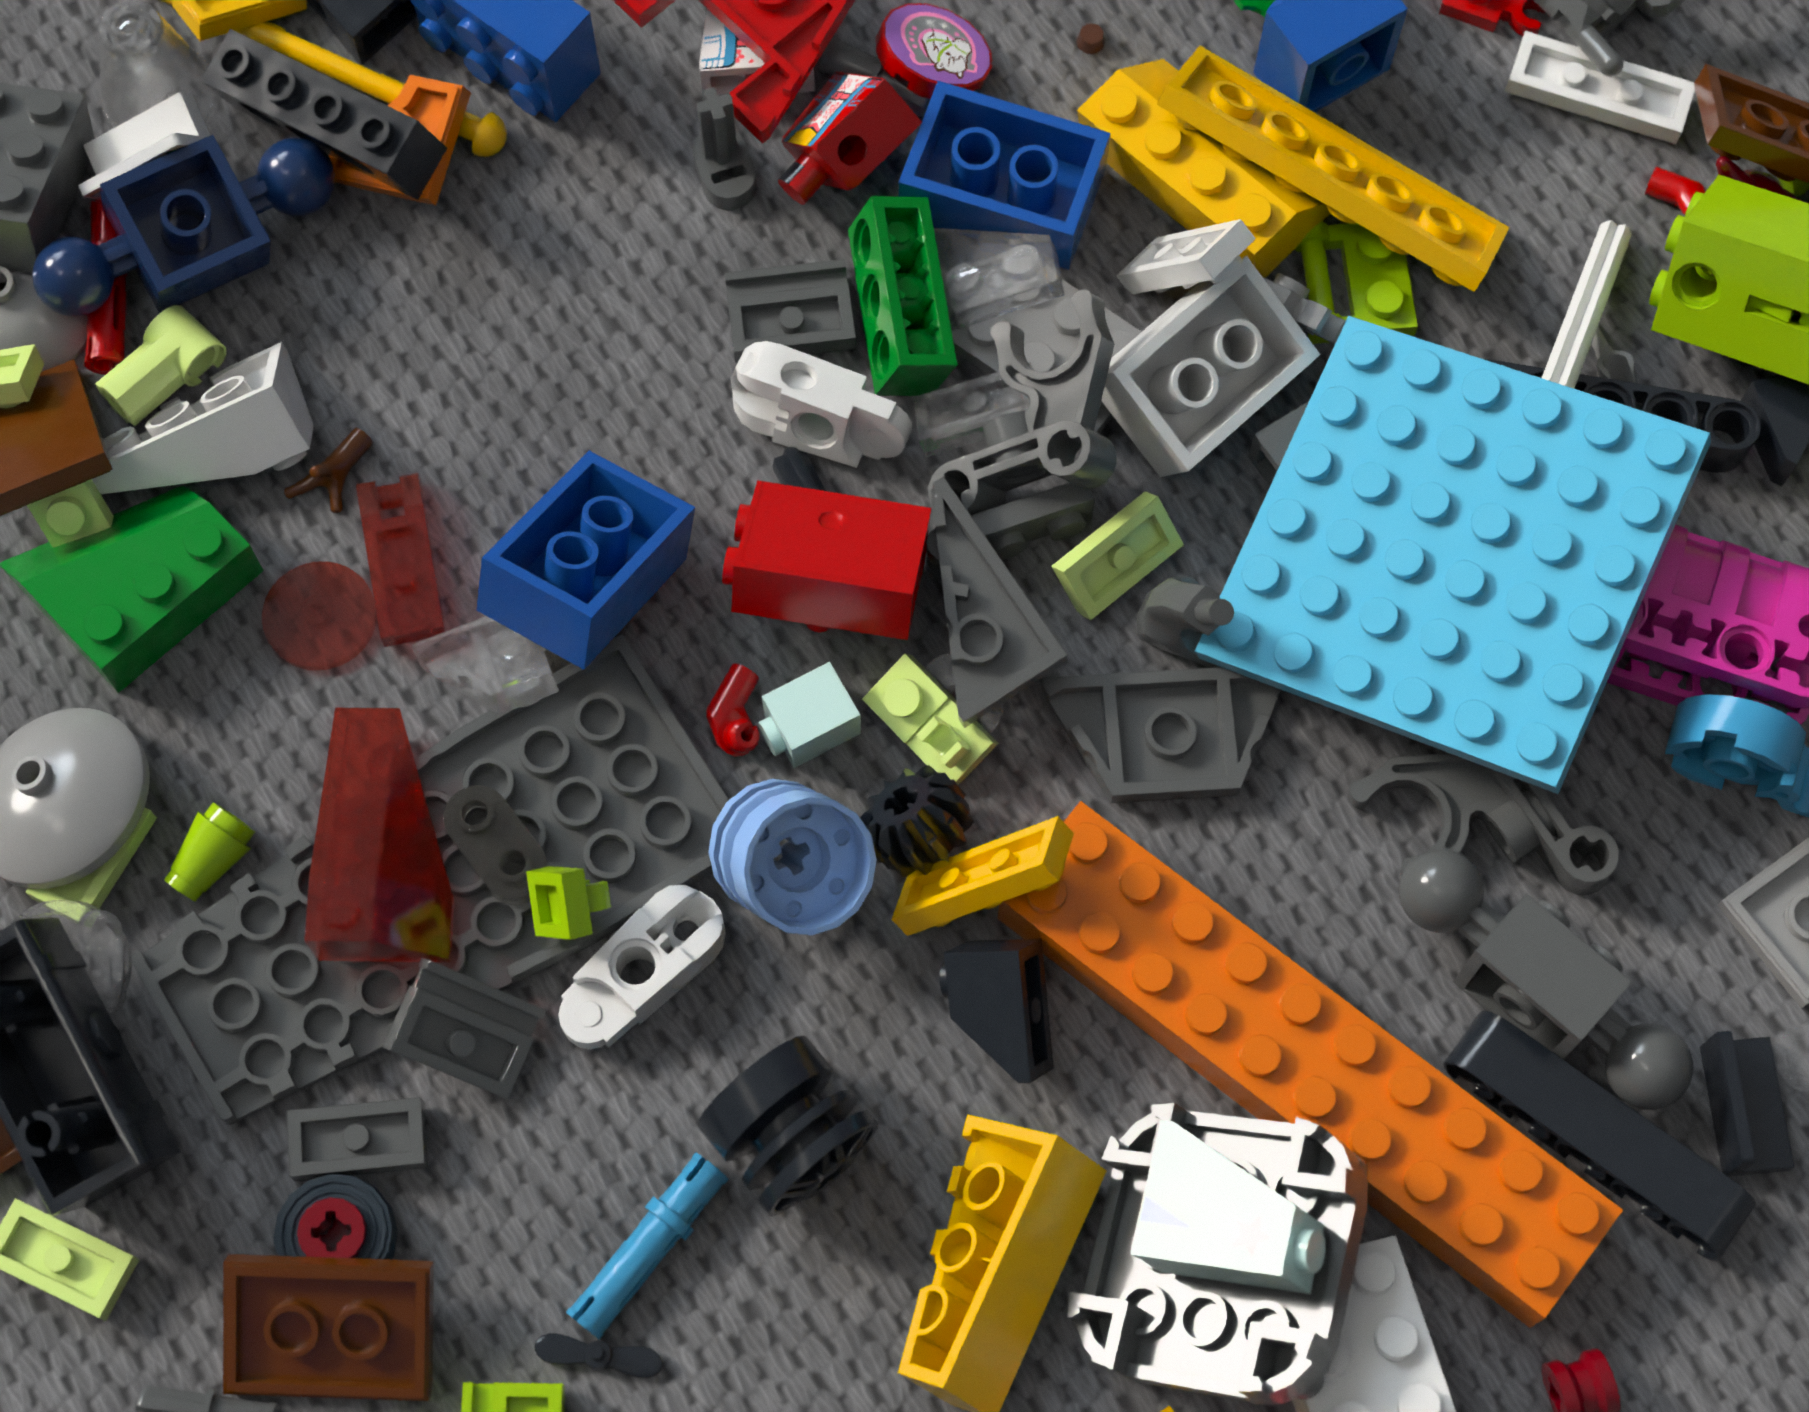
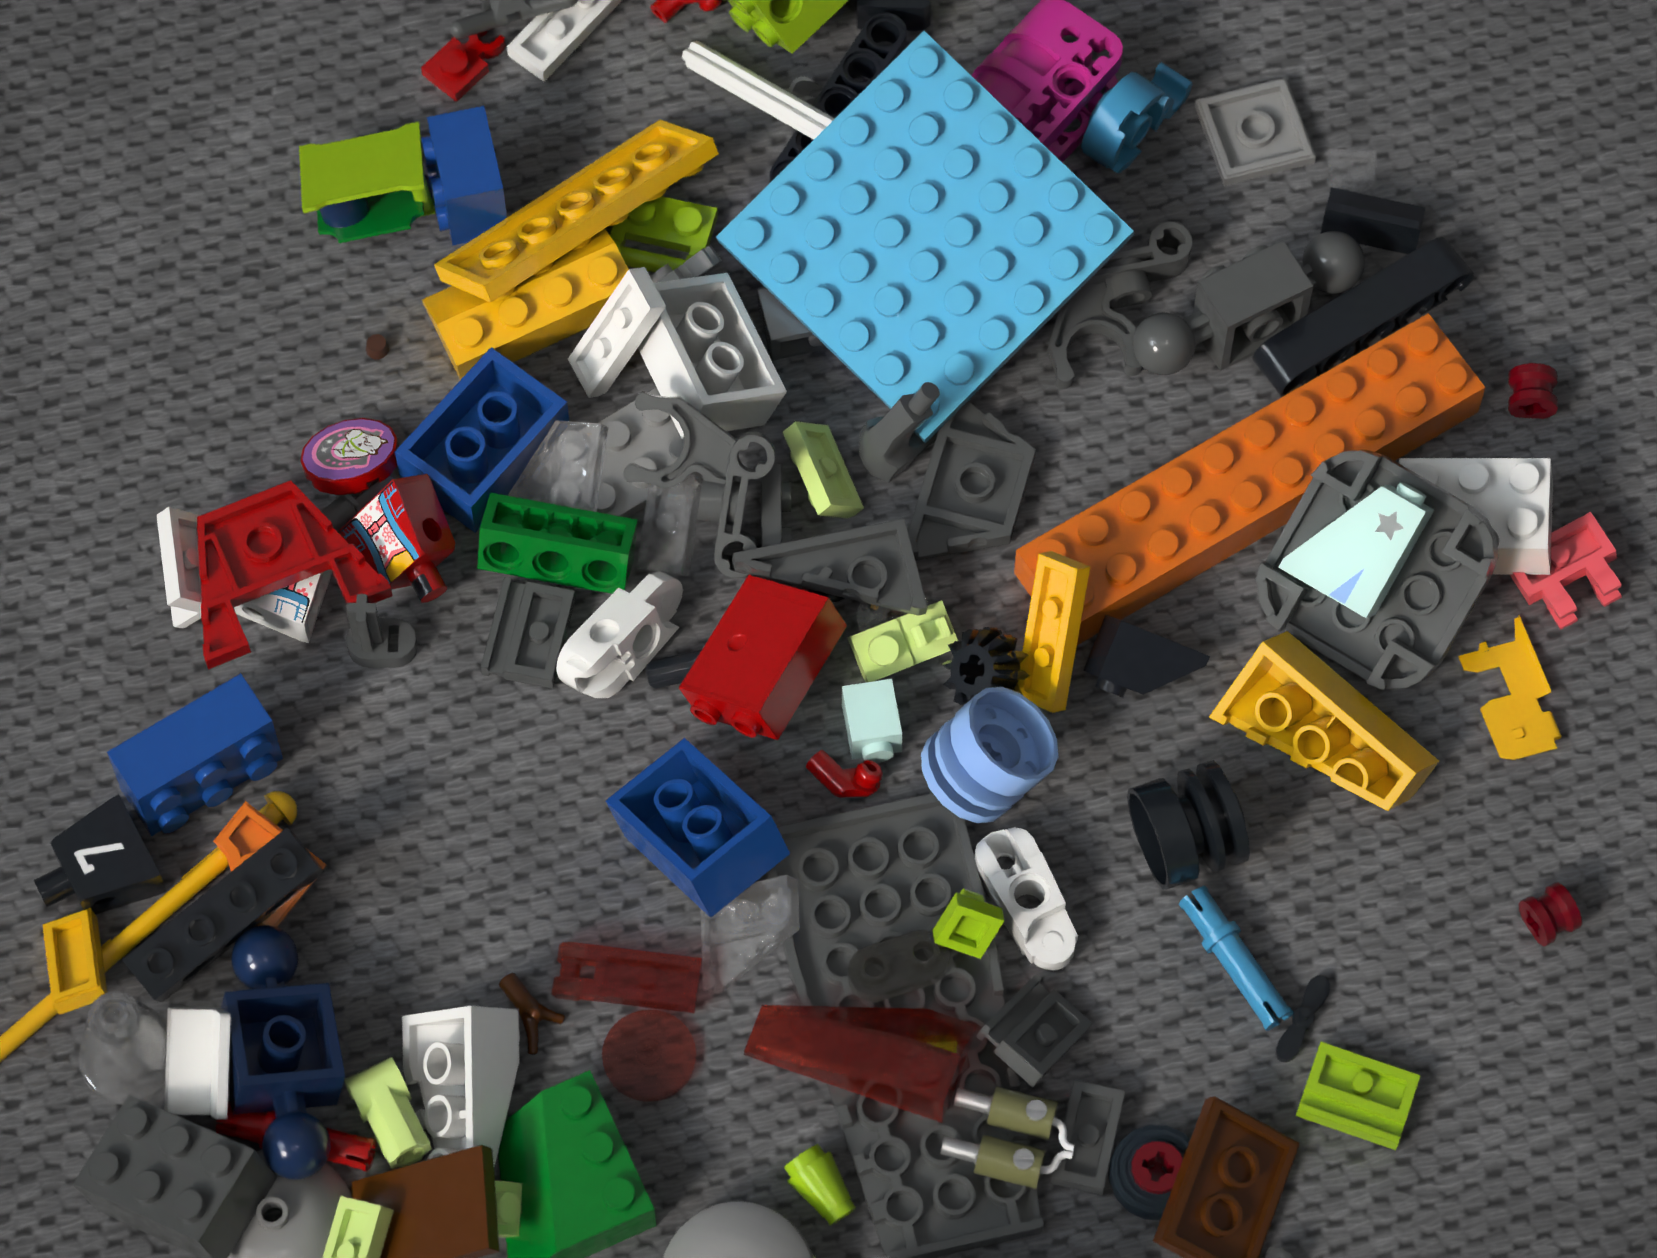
camera: 70 degrees left, 5 degrees down
(281, 1042) = (1004, 1158): none -> olive piece

